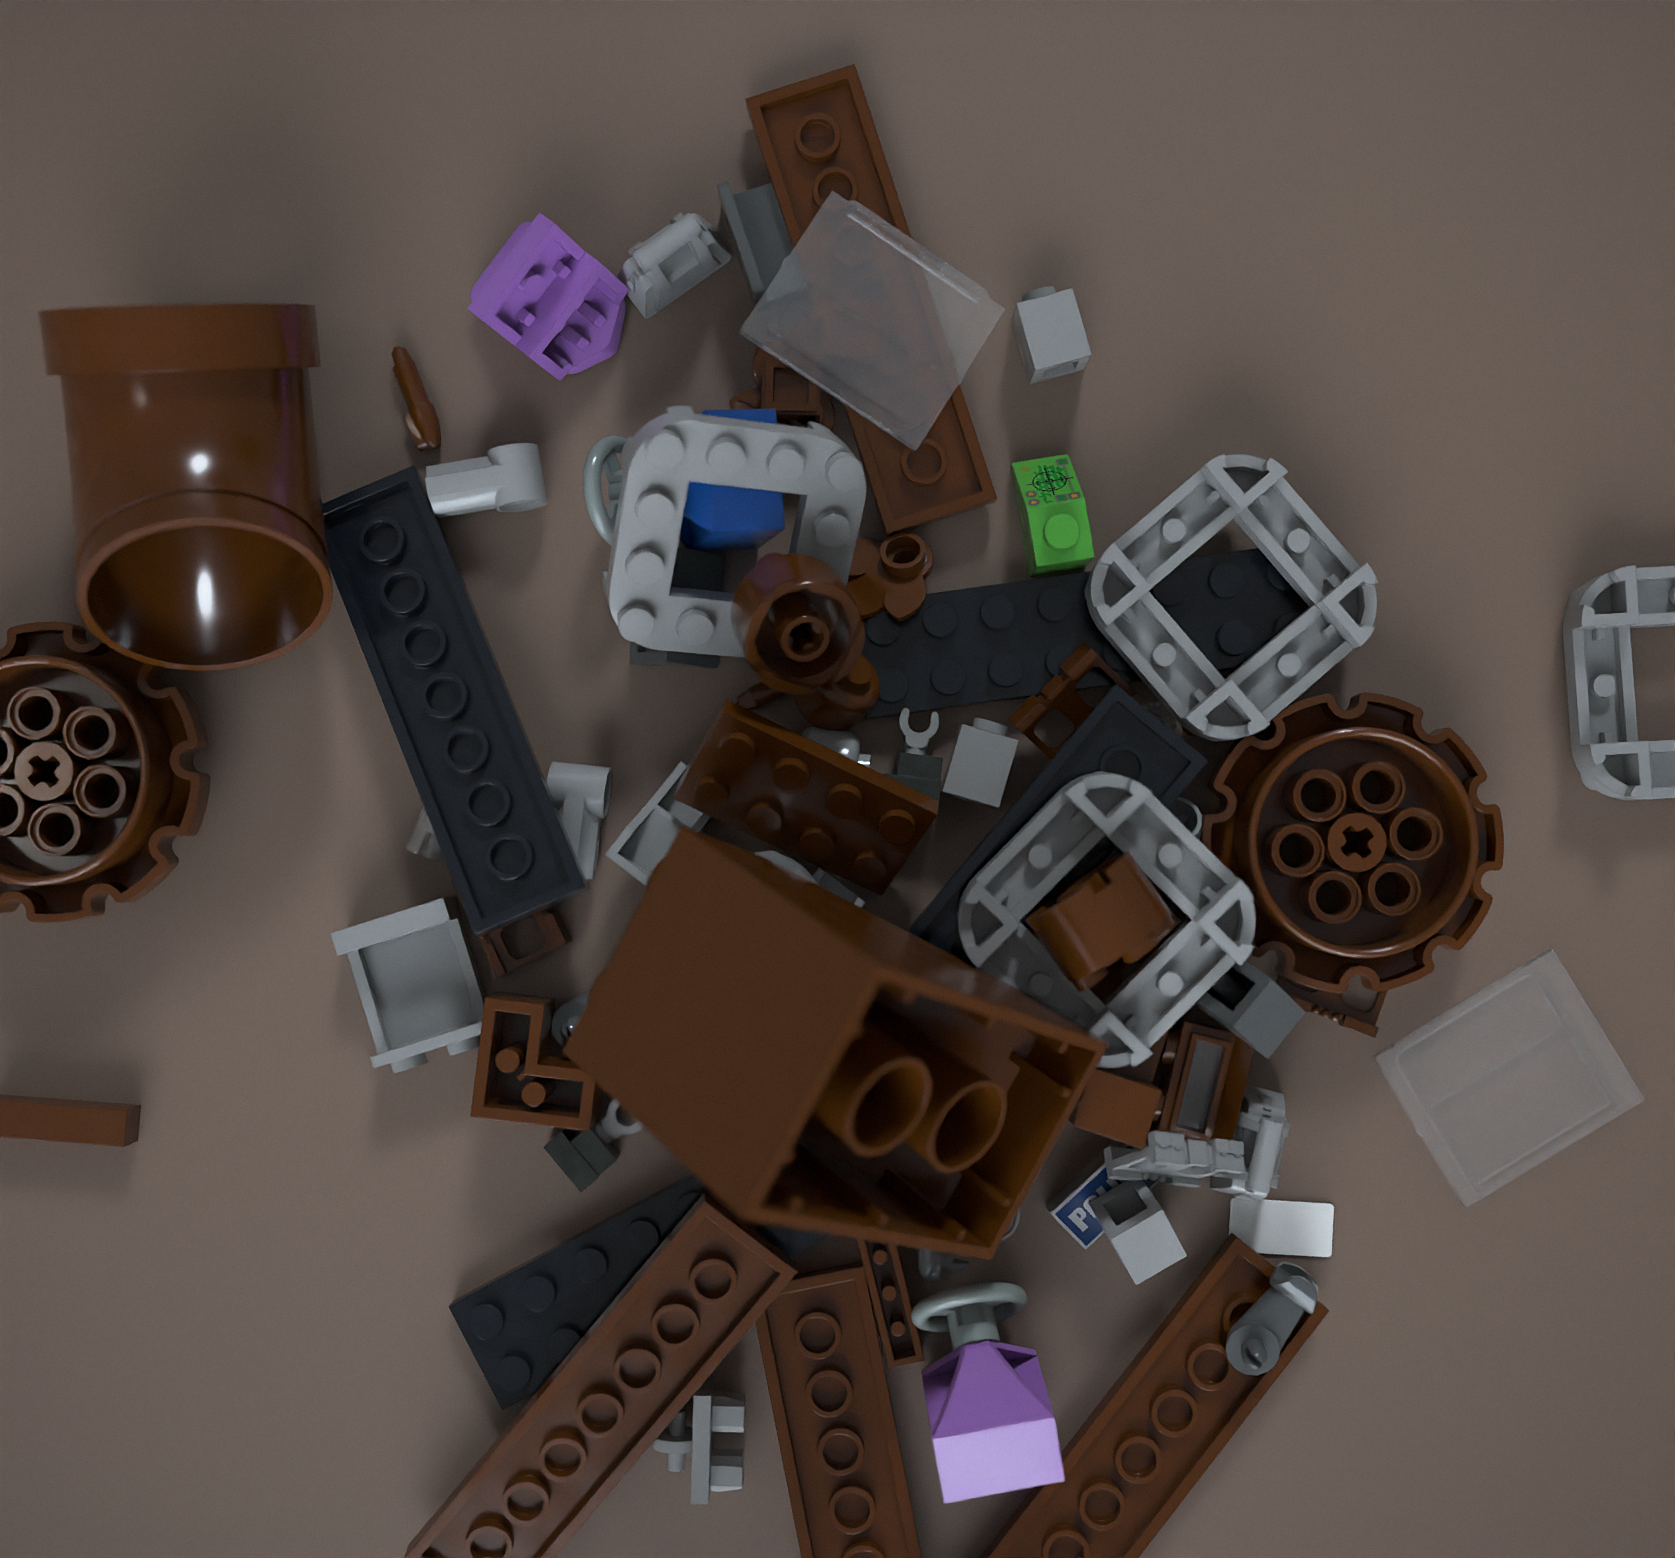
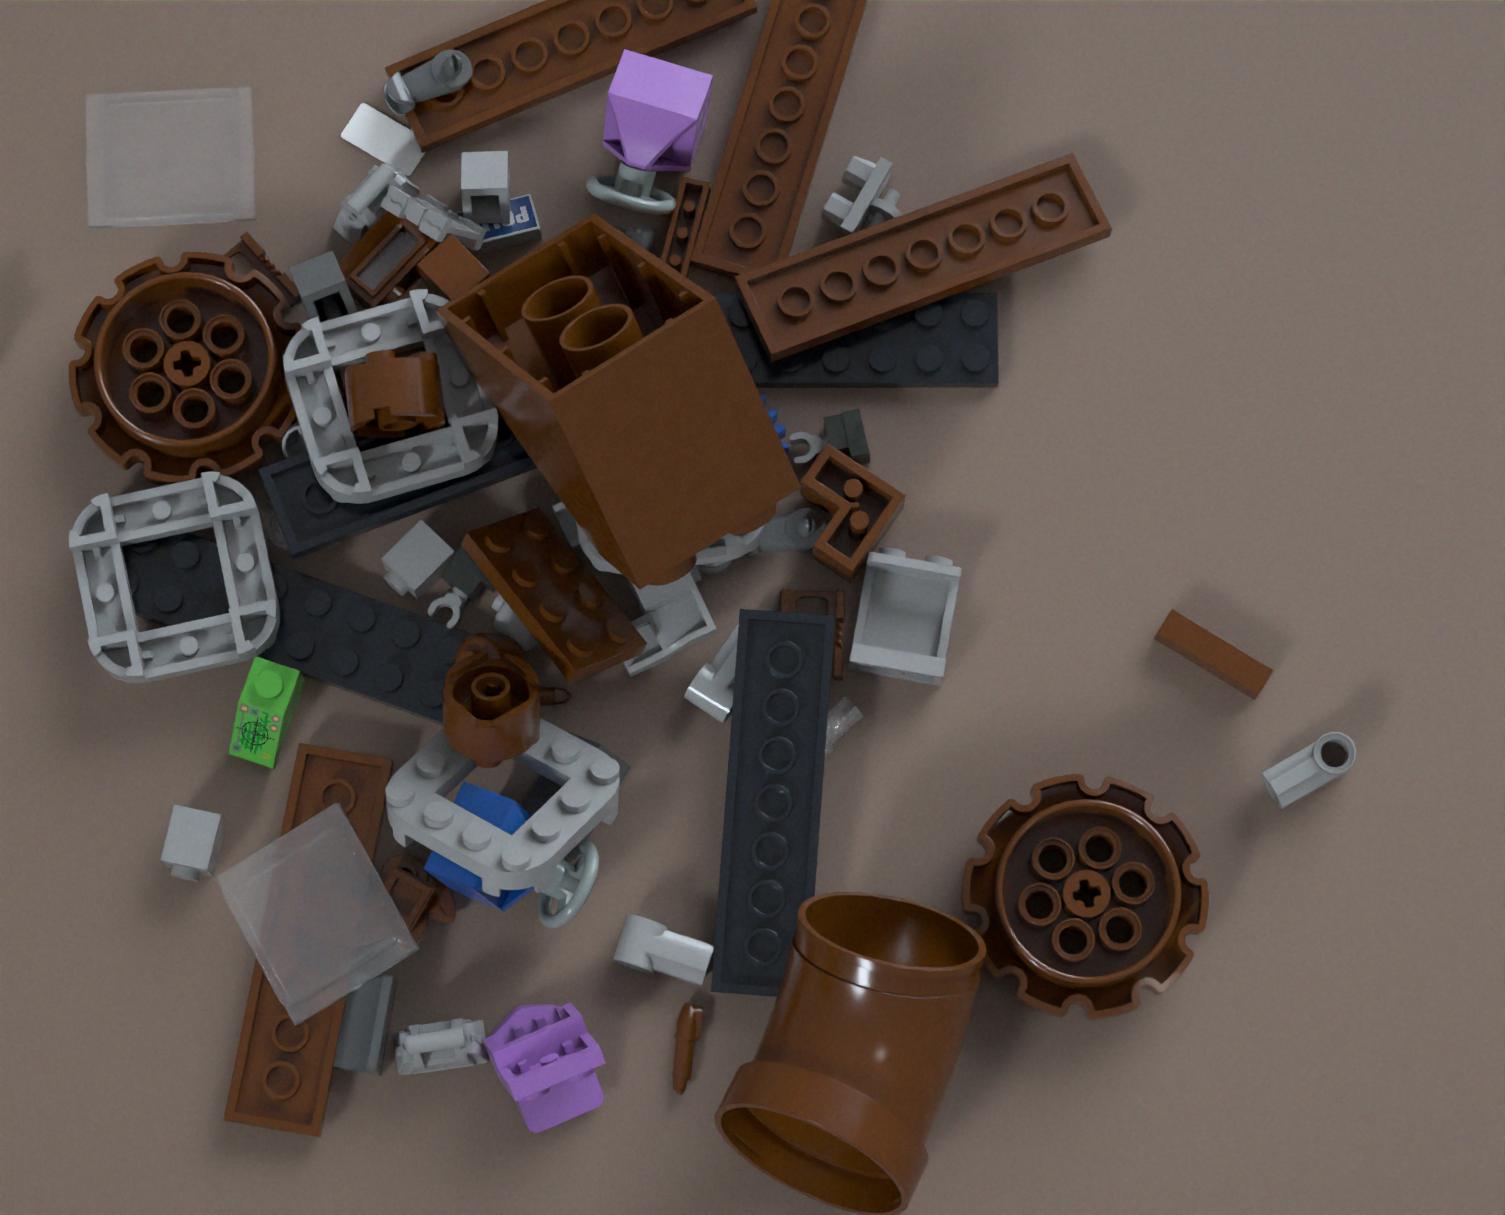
camera: 155 degrees left, 10 degrees down
(881, 580) = (411, 718): reddish brown plate -> none
(1061, 695) = (332, 577): reddish brown piece -> none

